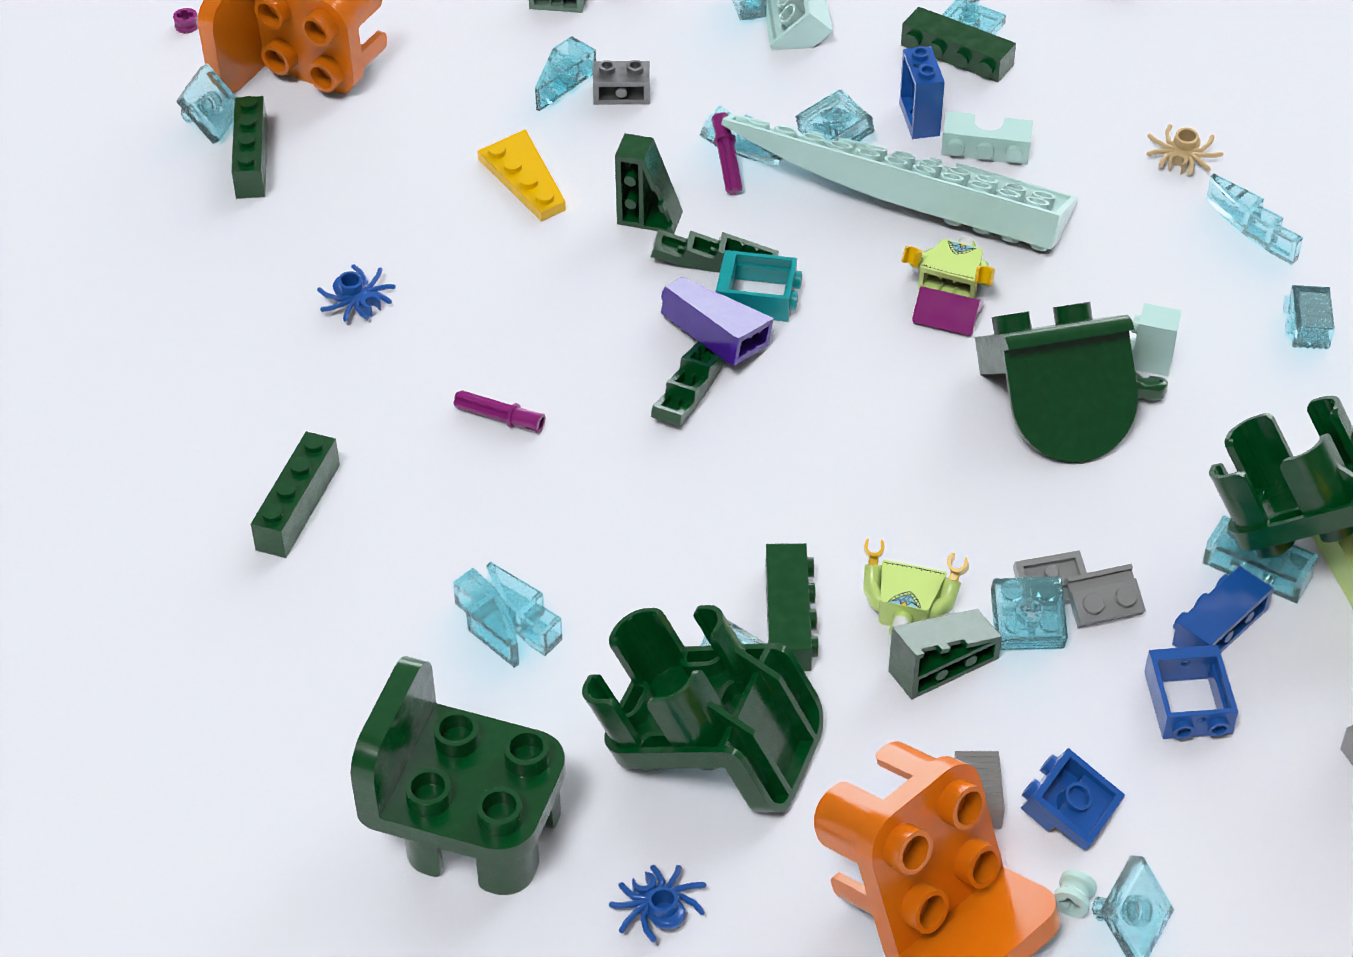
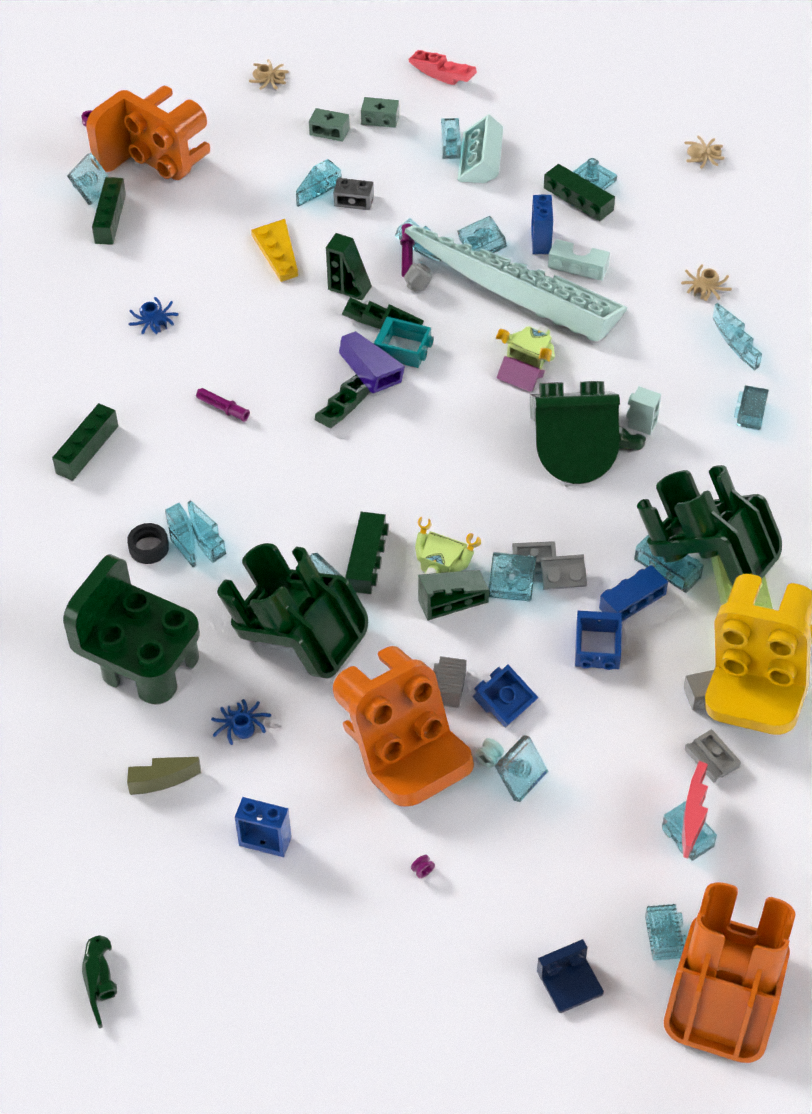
camera: 10 degrees right, 5 degrees up
(436, 618) = (148, 530): none -> black tyre
(754, 188) = (418, 277): none -> light grey head

